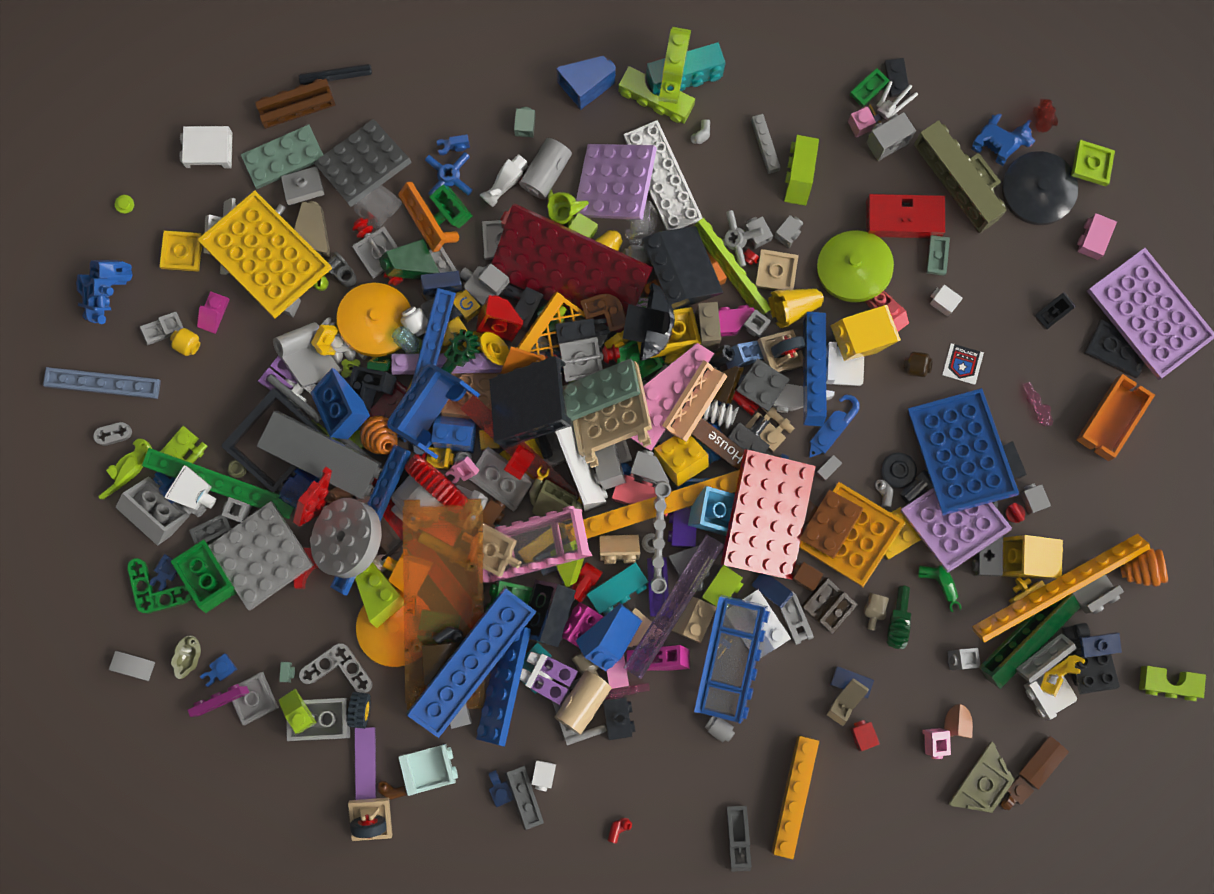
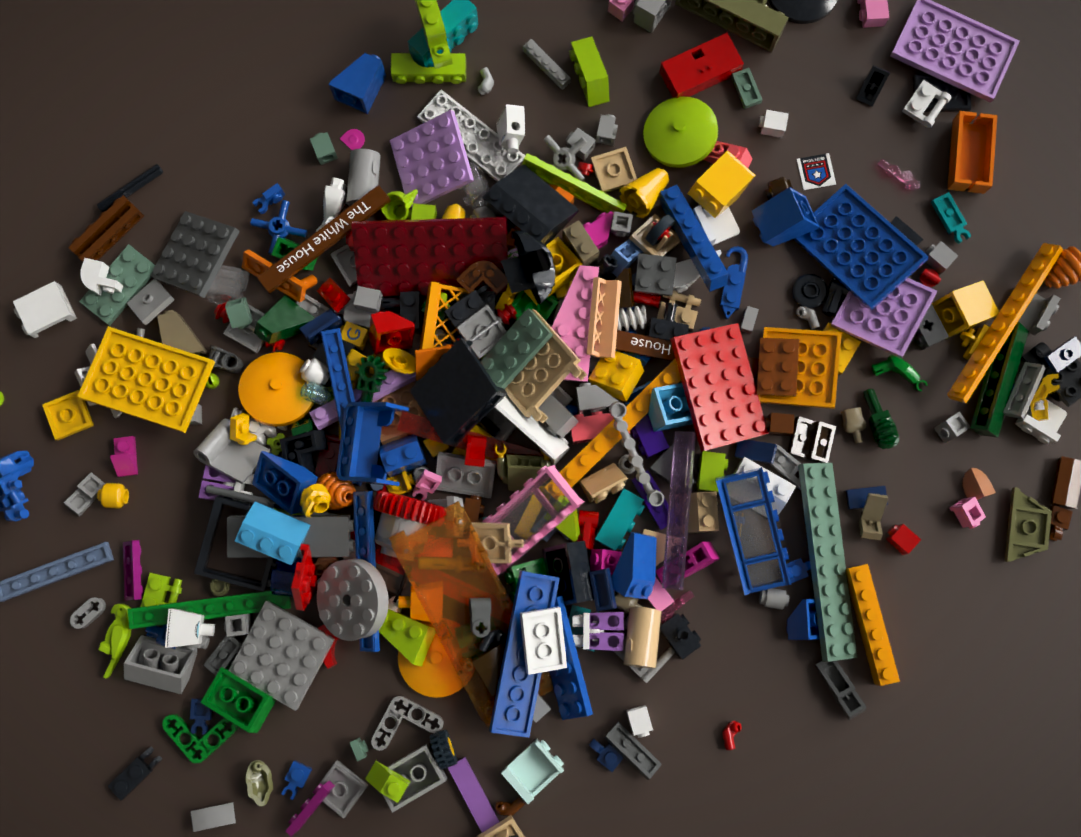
camera: 25 degrees left, 0 degrees up
(82, 594) = (133, 775): none -> black hinge
(169, 416) = (132, 570): none -> magenta plate
(264, 140) = (94, 277): none -> white brick
(306, 445) = (272, 533): none -> dark azure slope
(357, 433) = (315, 499): none -> yellow head
(374, 235) = (238, 313): none -> sand green brick
(451, 606) = (480, 612): none -> dark grey piece
(466, 260) = (333, 295): none -> red plate
(481, 206) = (323, 239): none -> reddish brown tile
(493, 658) = (543, 640): none -> white plate
(556, 127) = (353, 139): none -> dark pink piece
(569, 641) = (603, 589): none -> dark blue tile
(701, 187) = (511, 128): none -> white torso
(742, 765) = (803, 622): none -> blue slope
(756, 715) = (799, 569): none -> blue plate
(785, 720) = (827, 562): none -> sand green plate
(909, 391) = (784, 217): none -> blue slope
(1065, 466) = (951, 216): none -> teal plate
(1093, 346) = (921, 100): none -> white plate

